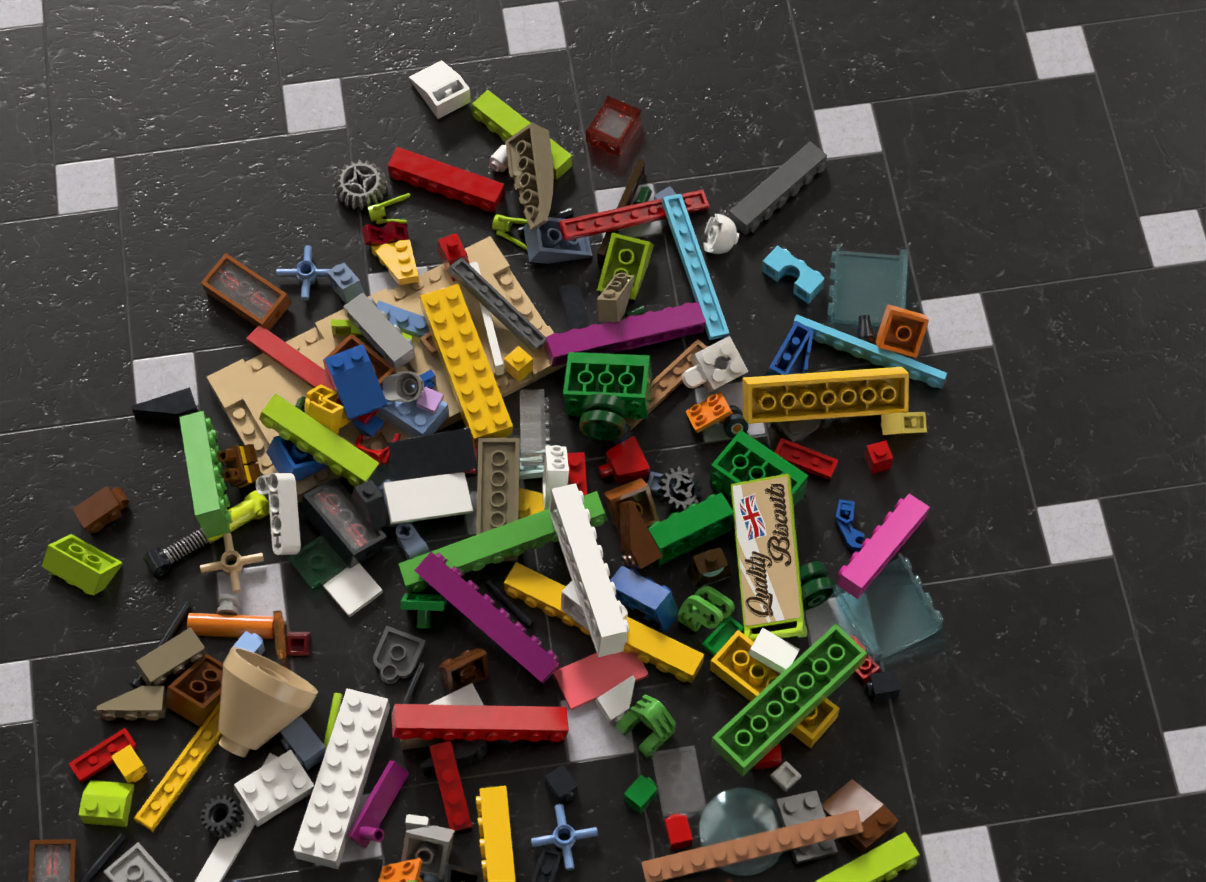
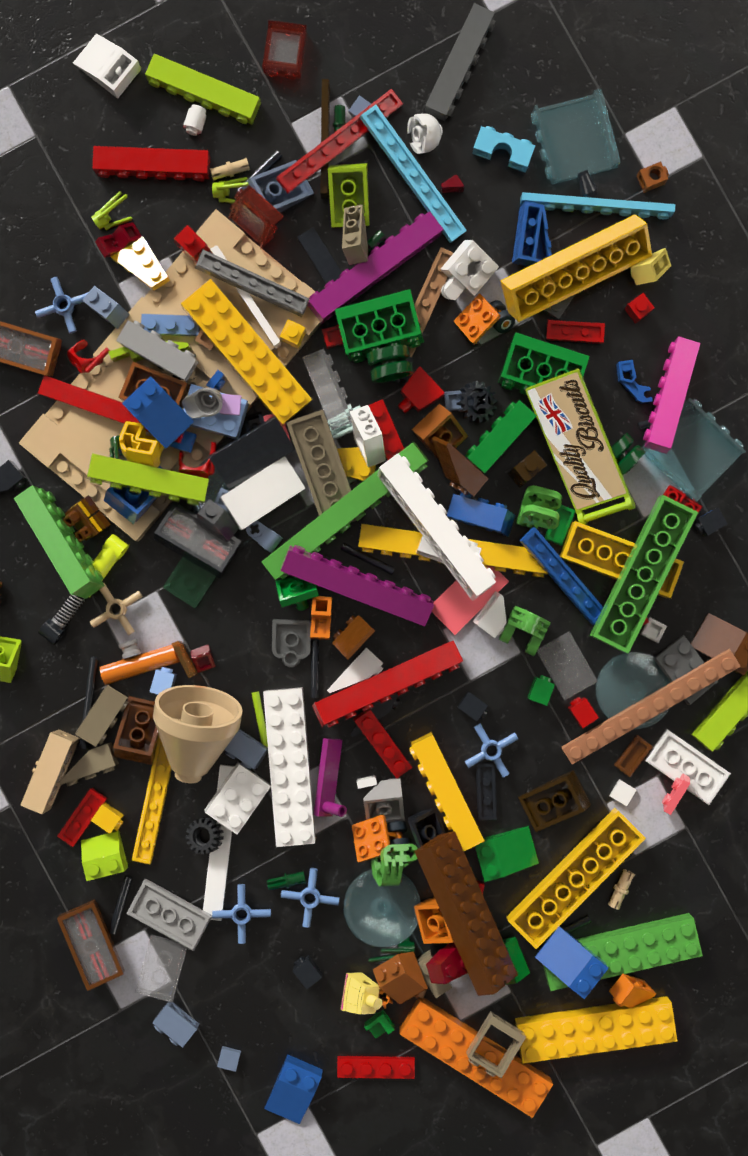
camera: 15 degrees left, 25 degrees up
(99, 684) = (49, 771): none -> tan brick
(283, 511) = (142, 551): white beam -> none
(304, 327) = (84, 365): none -> red helmet
(353, 589) = (229, 594): white tile -> none
(367, 175) = (69, 201): light grey gear -> none
(439, 638) = (321, 617): none -> orange brick
(512, 208) = (229, 169): none -> tan pin
(524, 250) = (255, 215): none -> clear red window
(532, 170) = (232, 132): dark tan wedge -> none
(556, 386) = (332, 336): none -> red tile
(703, 675) = (562, 575): none -> blue tile
(729, 289) = (452, 185): none -> dark red slope
(773, 651) = (613, 531): white tile -> none
(902, 331) = (623, 177): orange brick -> none
(930, 351) = (647, 182): none -> dark orange brick

